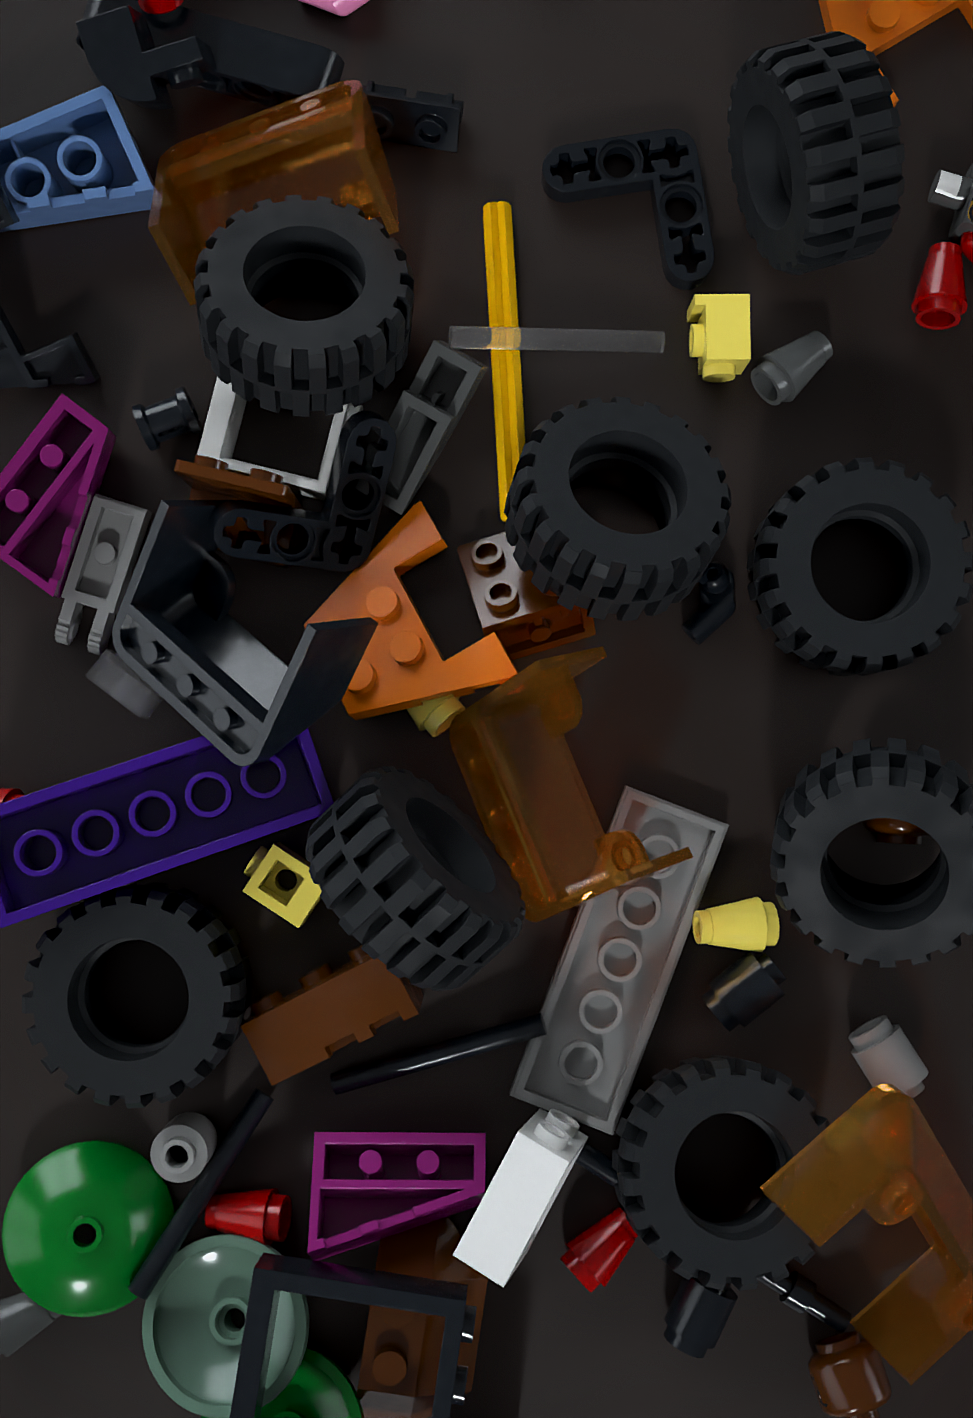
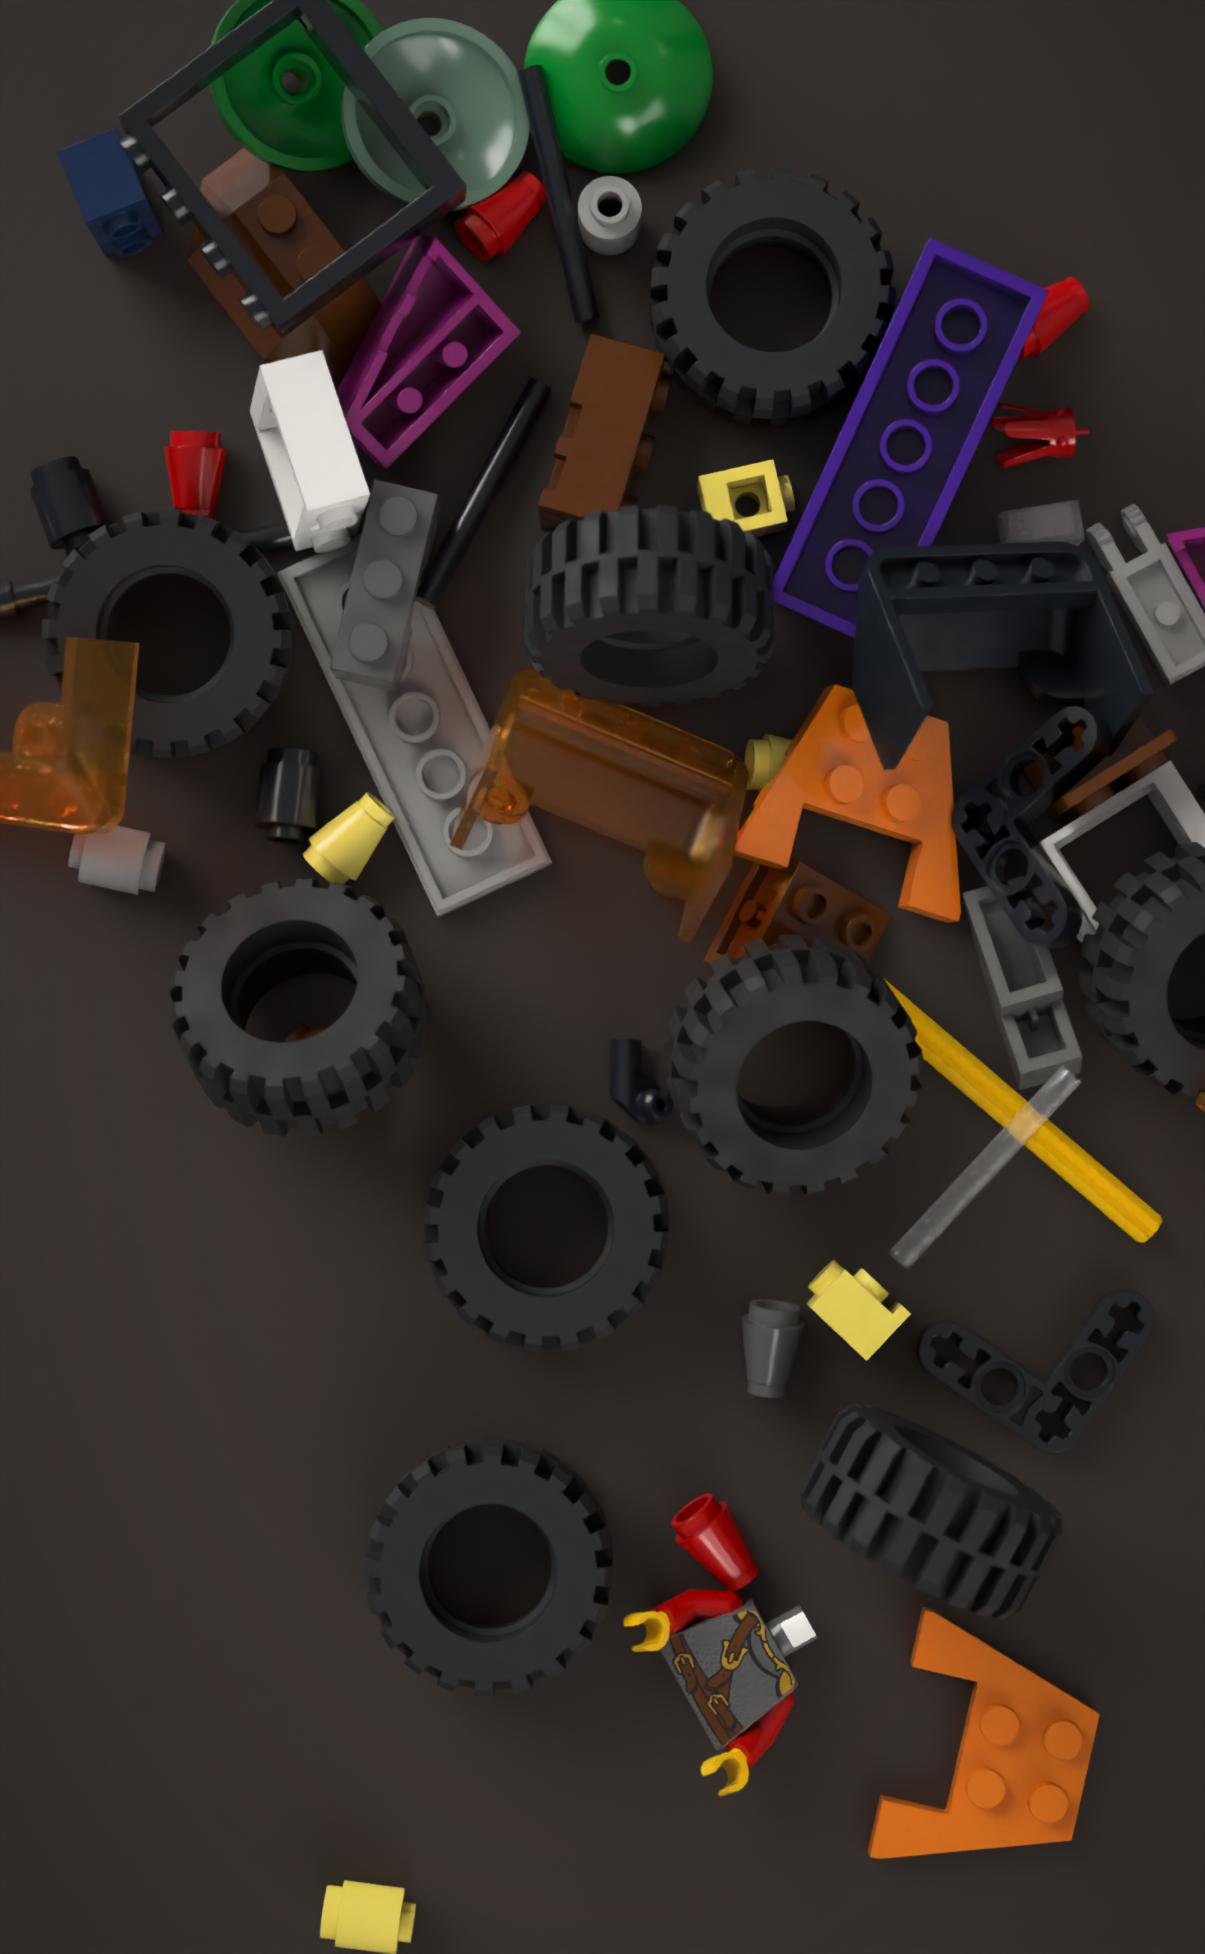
camera: 135 degrees right, 0 degrees up
(55, 735) = (1052, 427): none -> red piece
(544, 1072) = (384, 585): none -> dark grey arch

